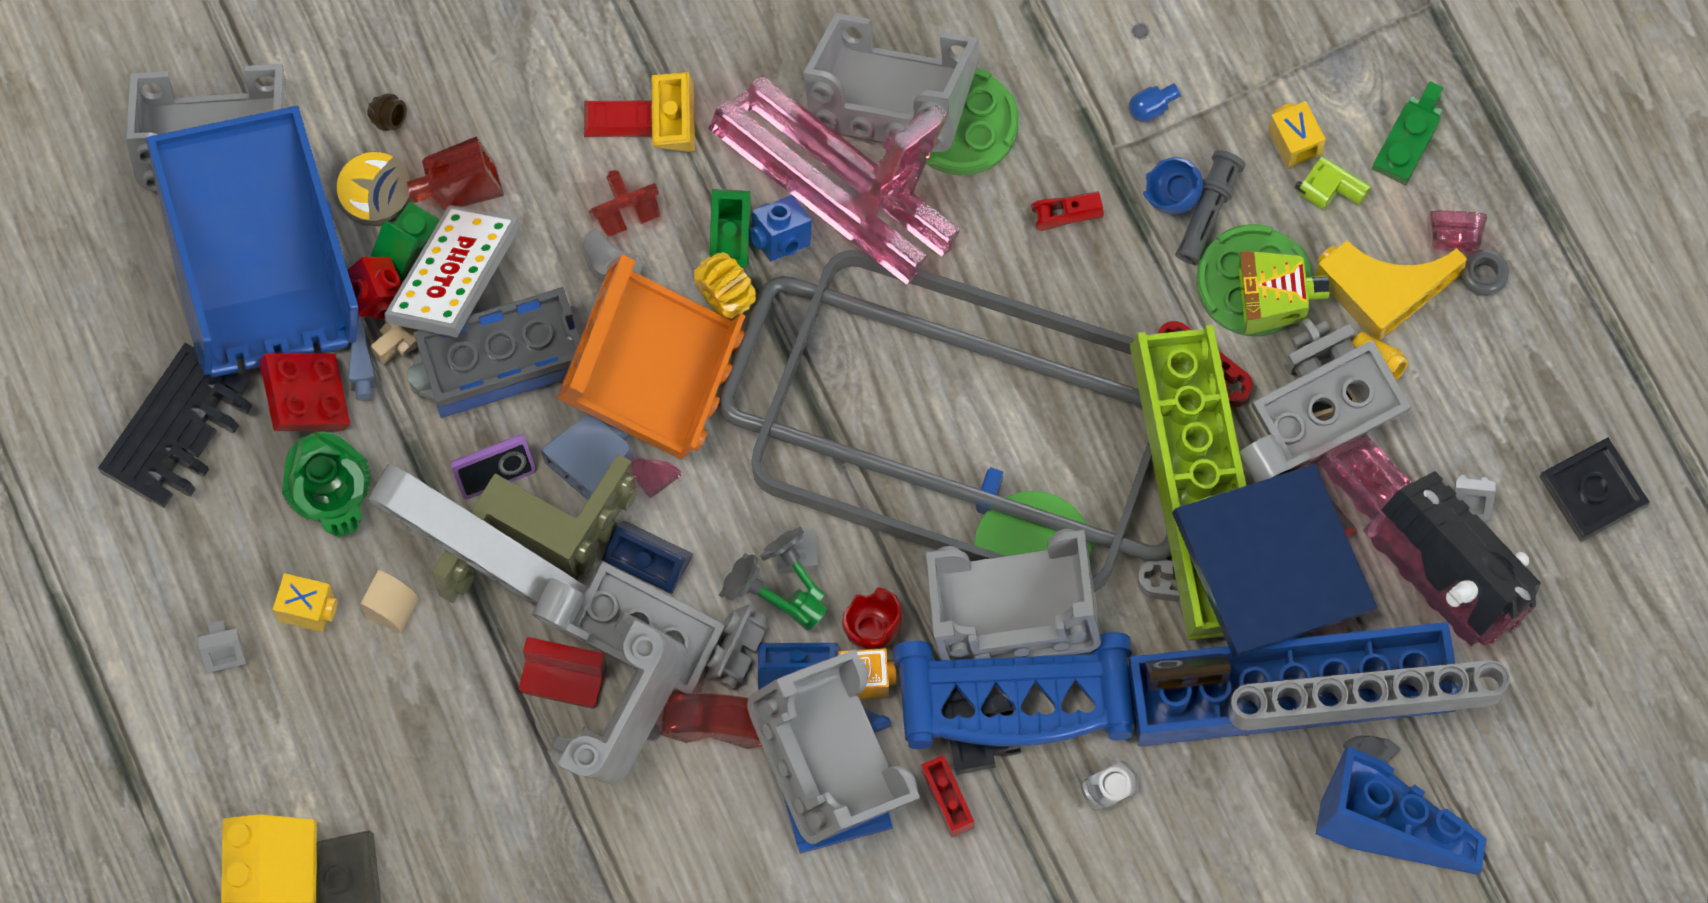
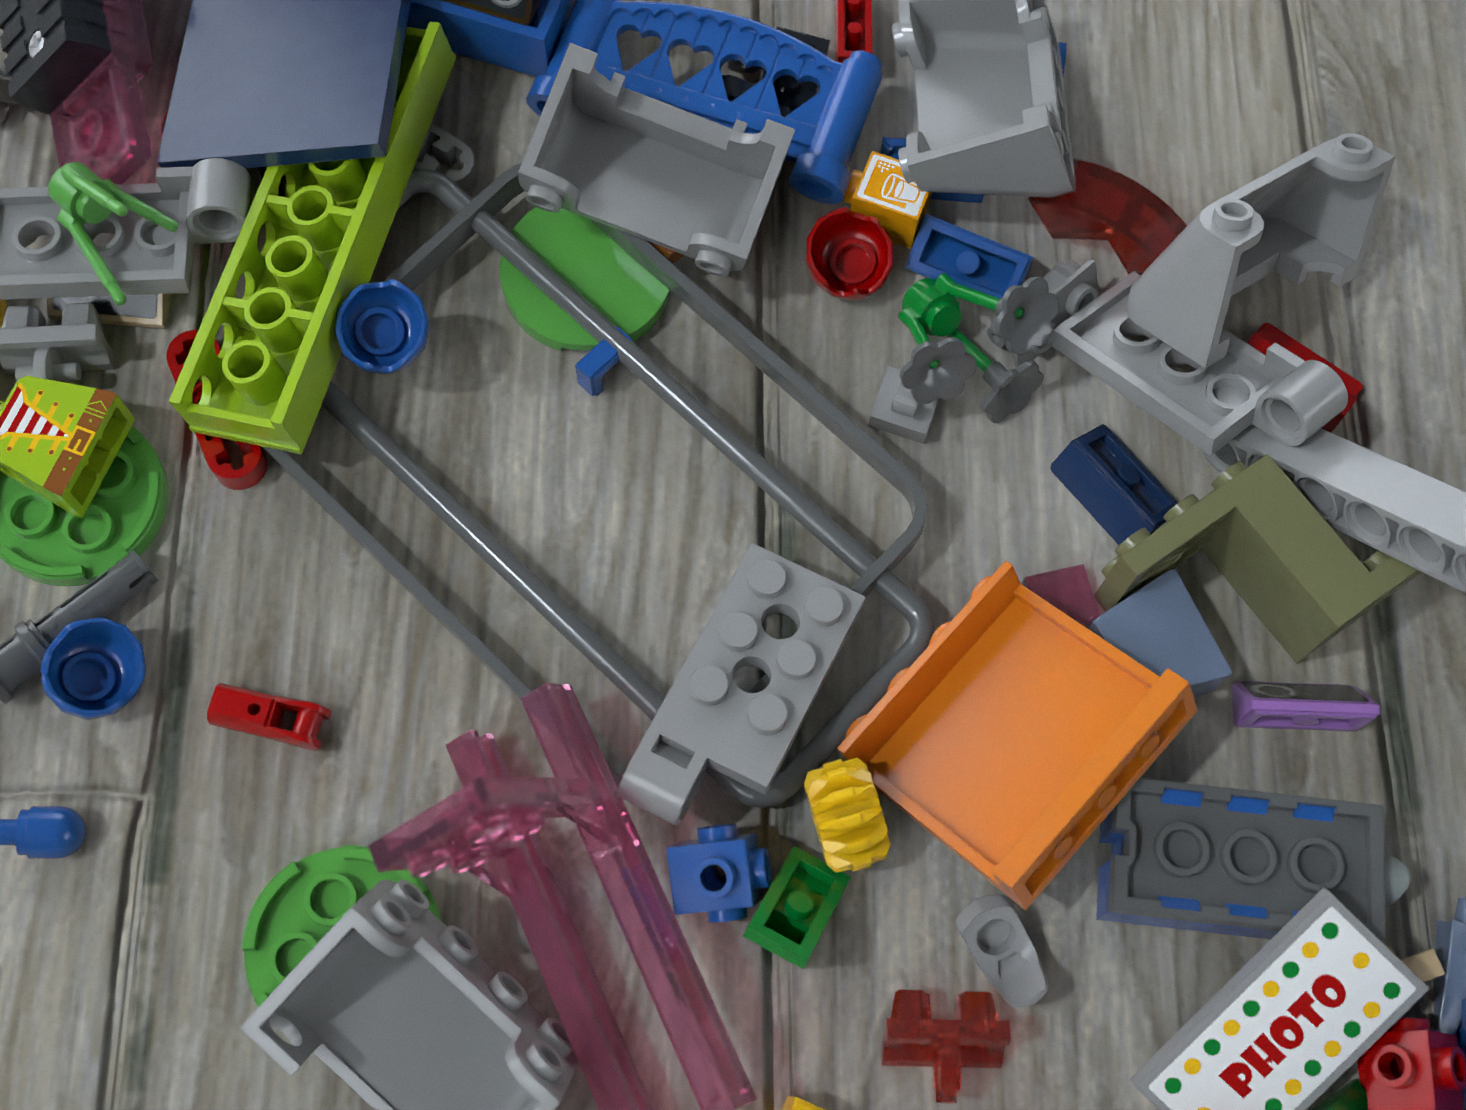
camera: 160 degrees left, 0 degrees up
(816, 291) = (713, 720): none -> light grey hinge
(1120, 426) = (382, 327): none -> blue hair
(1336, 412) = (91, 200): none -> bright green plant

